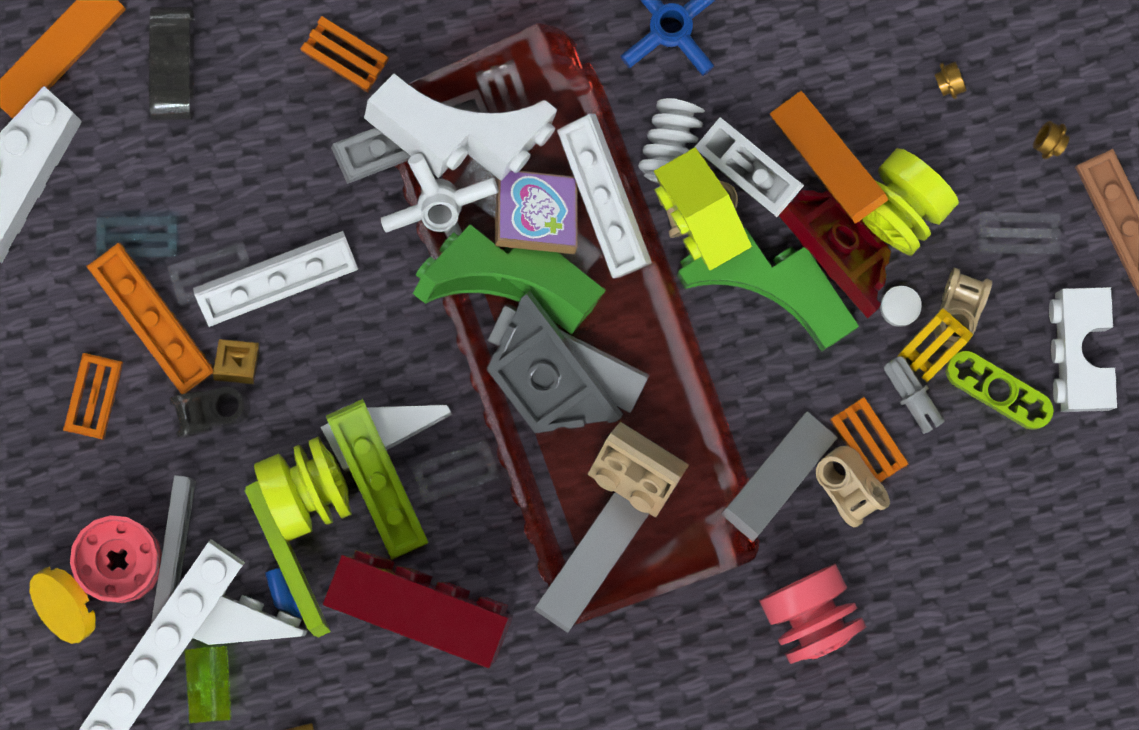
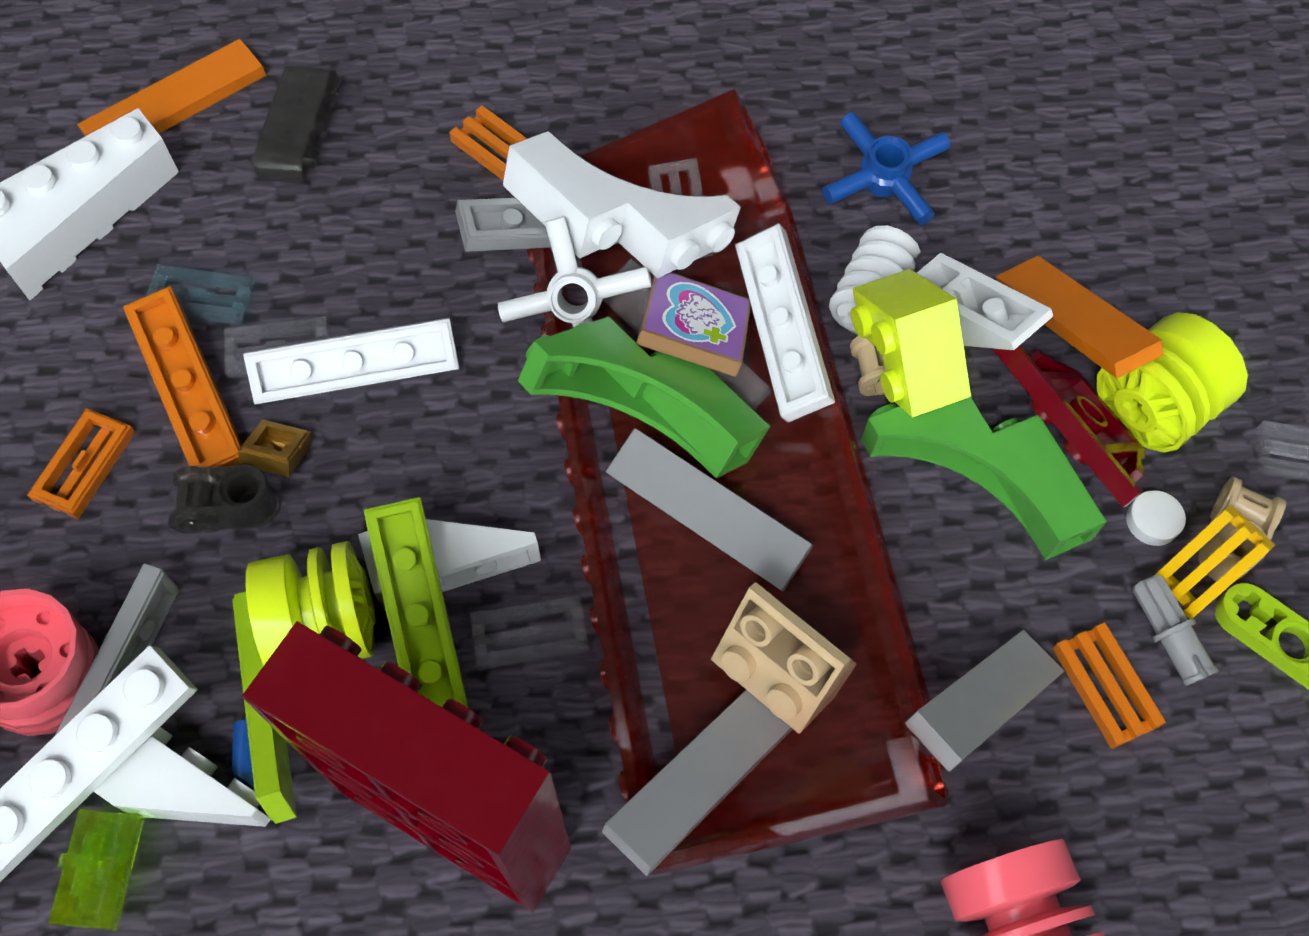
camera: 10 degrees right, 20 degrees down
(546, 374) = (675, 519): dark grey wing -> none
(853, 488) = (1087, 740): tan piece -> none
(950, 80) = (1223, 271): pearl gold plate -> none

